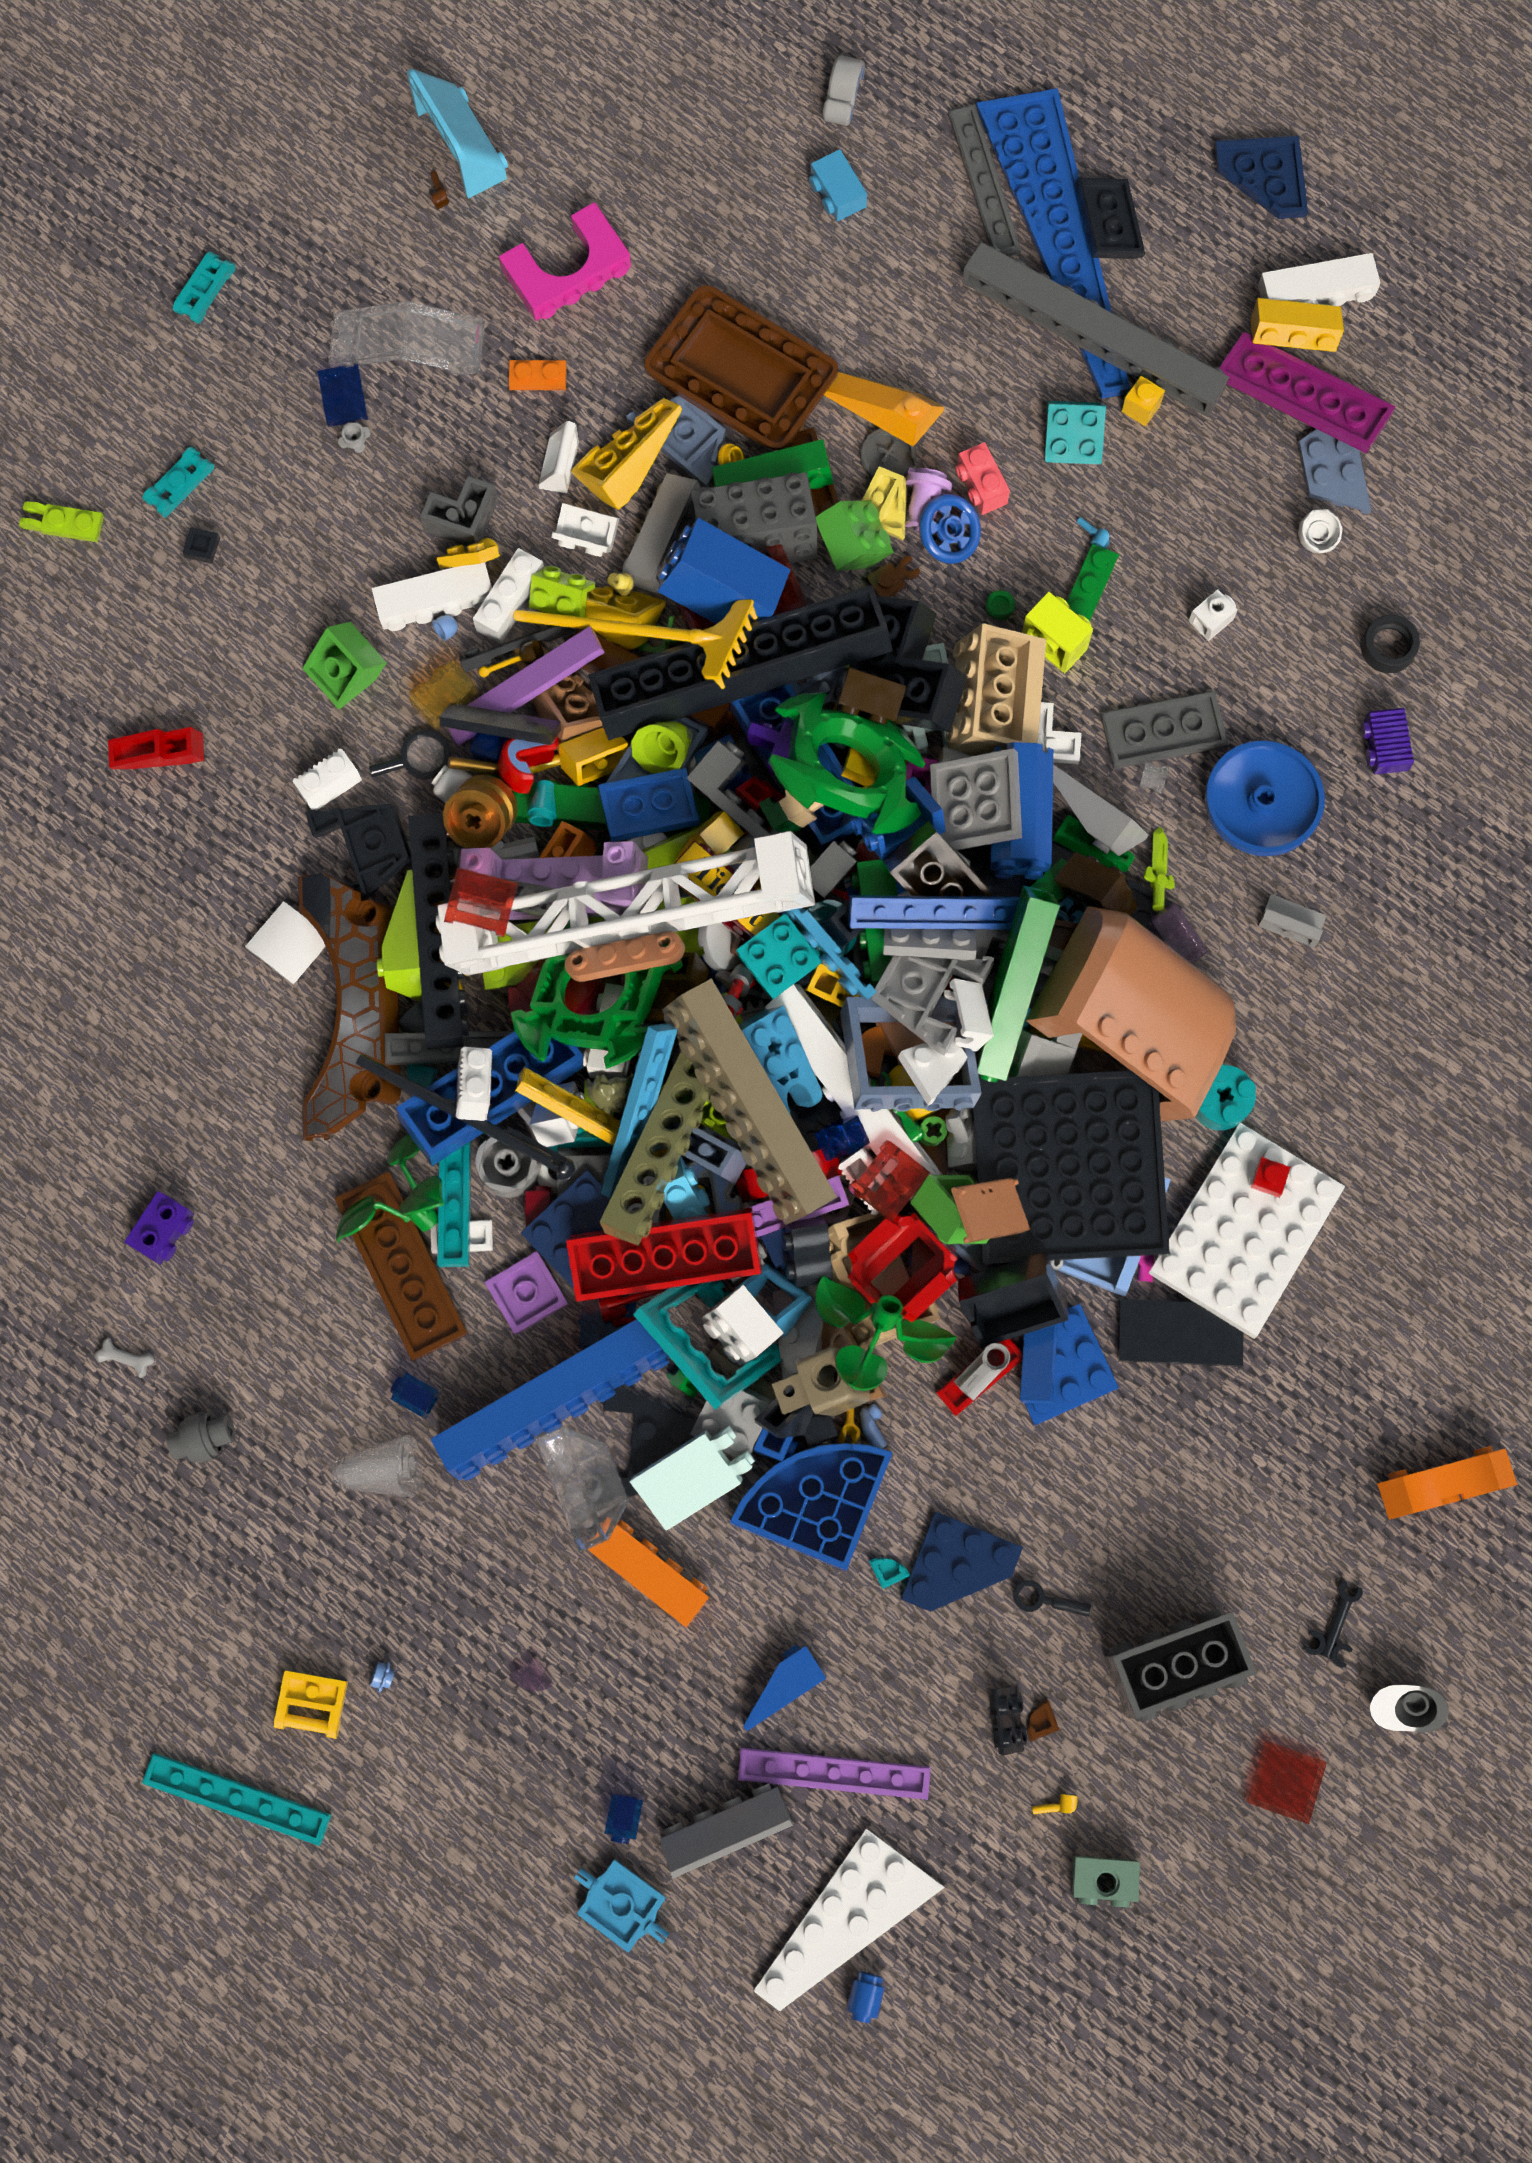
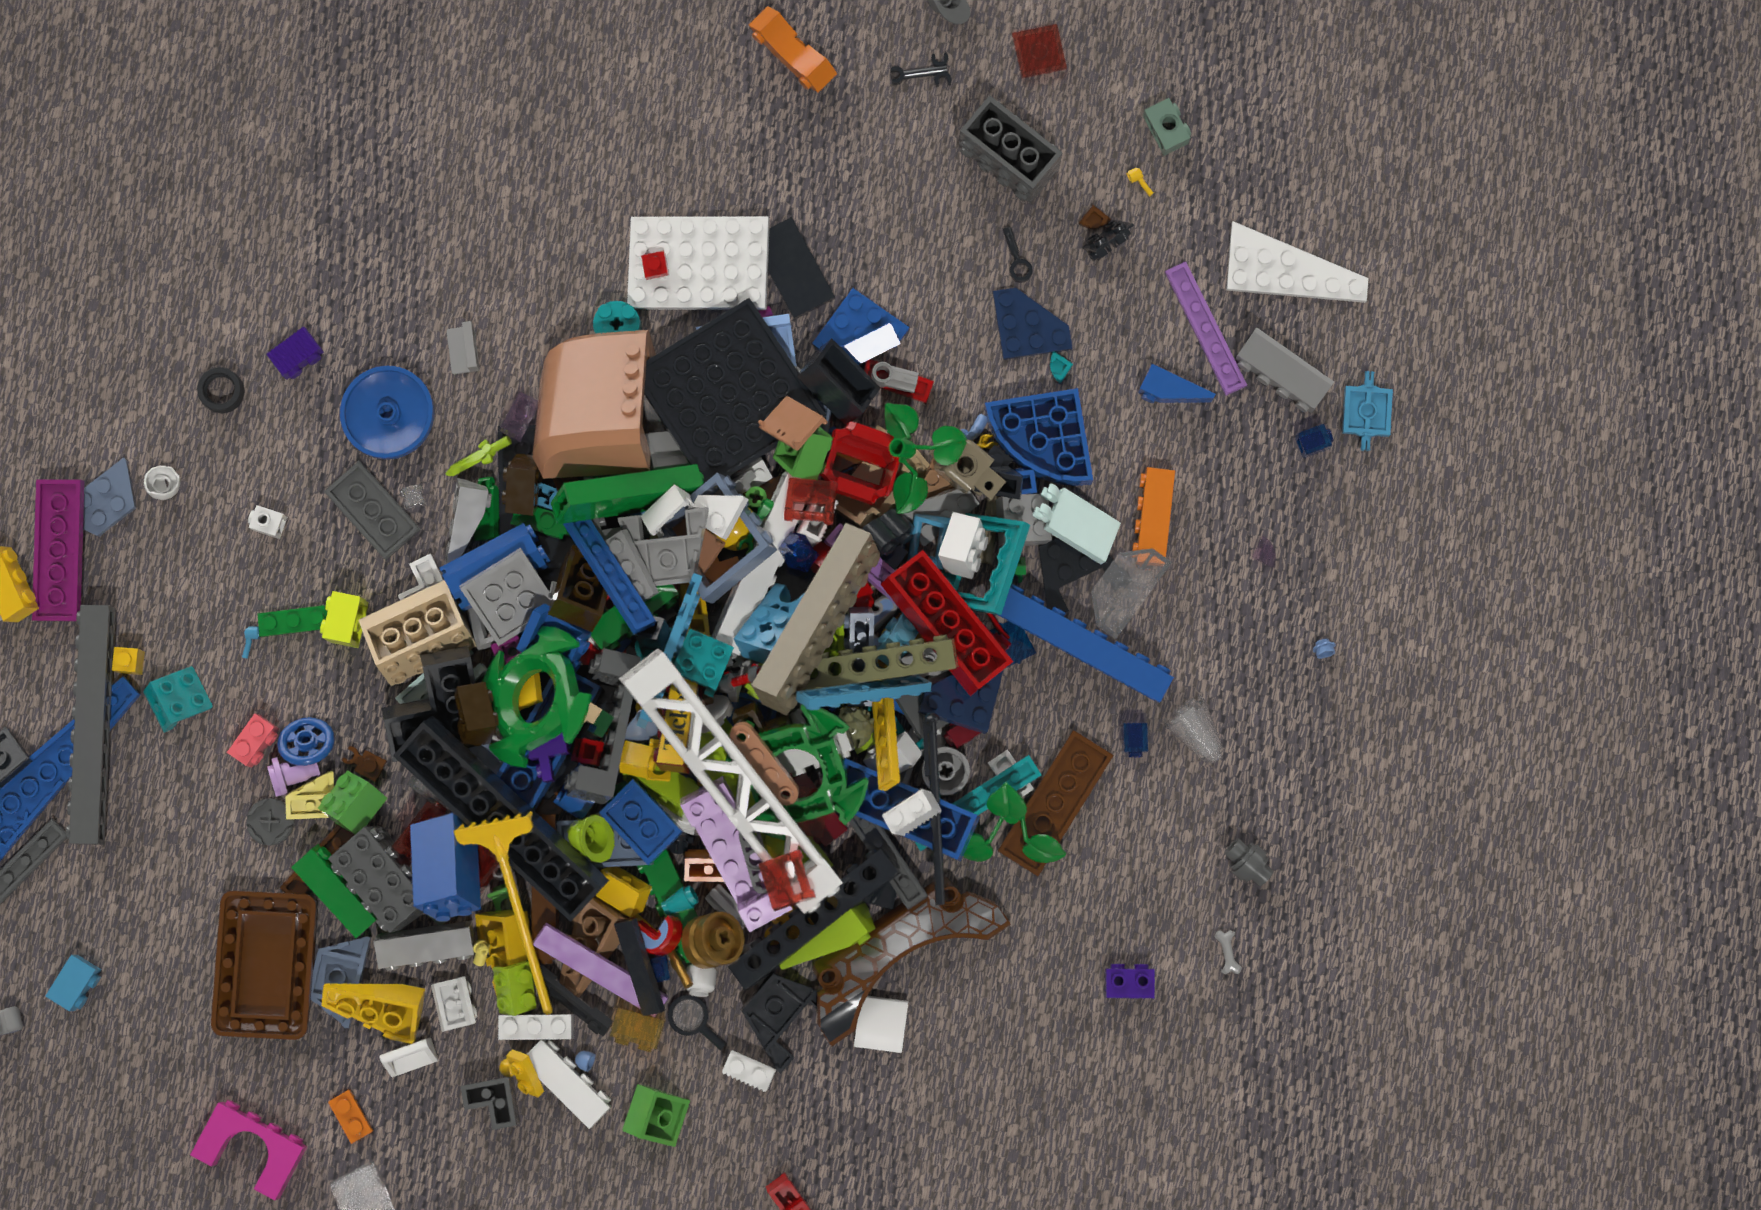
camera: 120 degrees left, 5 degrees up
(236, 1799) = (1456, 694): teal tile -> none
(313, 1693) = (1362, 686): yellow plate -> none
(422, 1074) = (921, 870): teal tile -> none
(526, 1293) = (1022, 709): medium lavender tile -> none
(528, 654) = (572, 981): hinge -> none
(729, 453) = (337, 933): yellow plate -> none
(866, 1997) = (1327, 230): blue brick -> none
(888, 407) = (232, 840): light orange wedge -> none
(1000, 605) = (342, 675): green tile -> none

